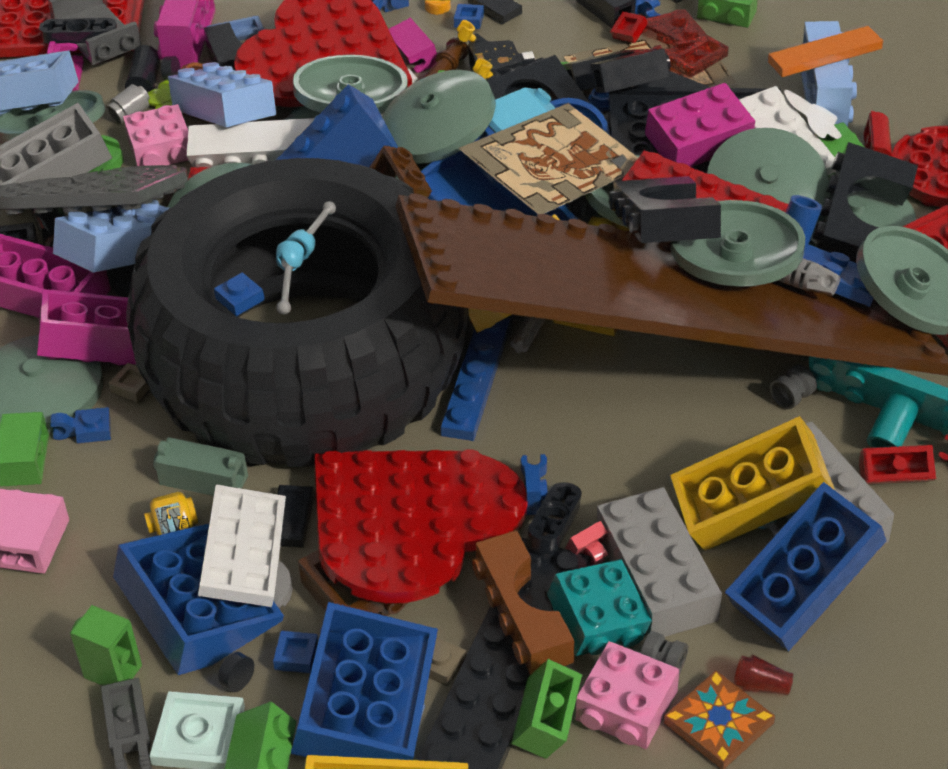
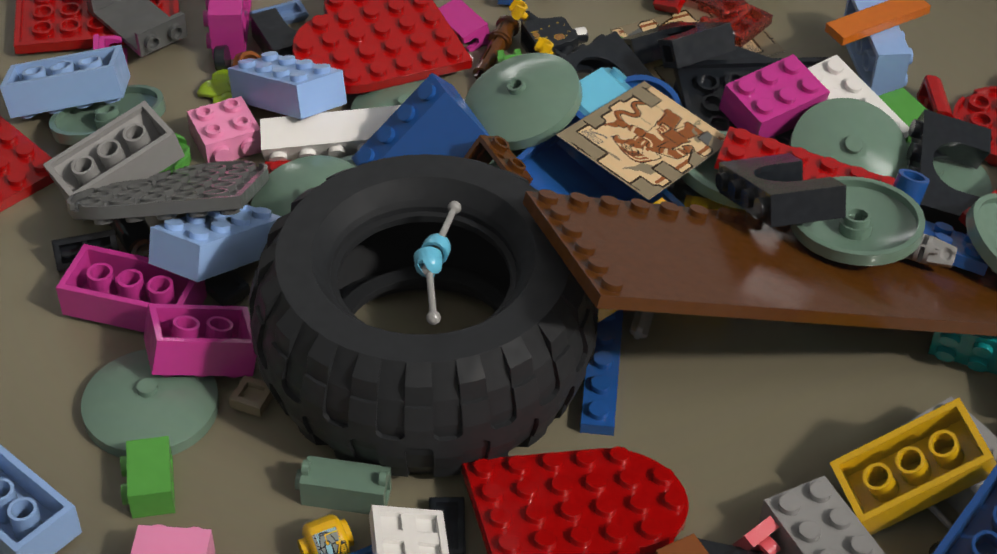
camera: 10 degrees left, 0 degrees up
(68, 29) = (106, 22): black beam -> none
(87, 426) = (213, 445): blue plate -> none
(128, 102) = (186, 96): light grey brick -> none
(143, 67) = (192, 60): black brick -> none
(239, 294) = (383, 305): blue plate -> none
(324, 78) = (403, 64): sand green dish -> none
(535, 488) = (687, 474): blue plate -> none
(556, 528) = (710, 521): black beam -> none
(599, 100) = (658, 71): blue plate -> none
(796, 384) = (917, 359): dark grey wheel -> none
(819, 118) = (882, 84): white sticker -> none

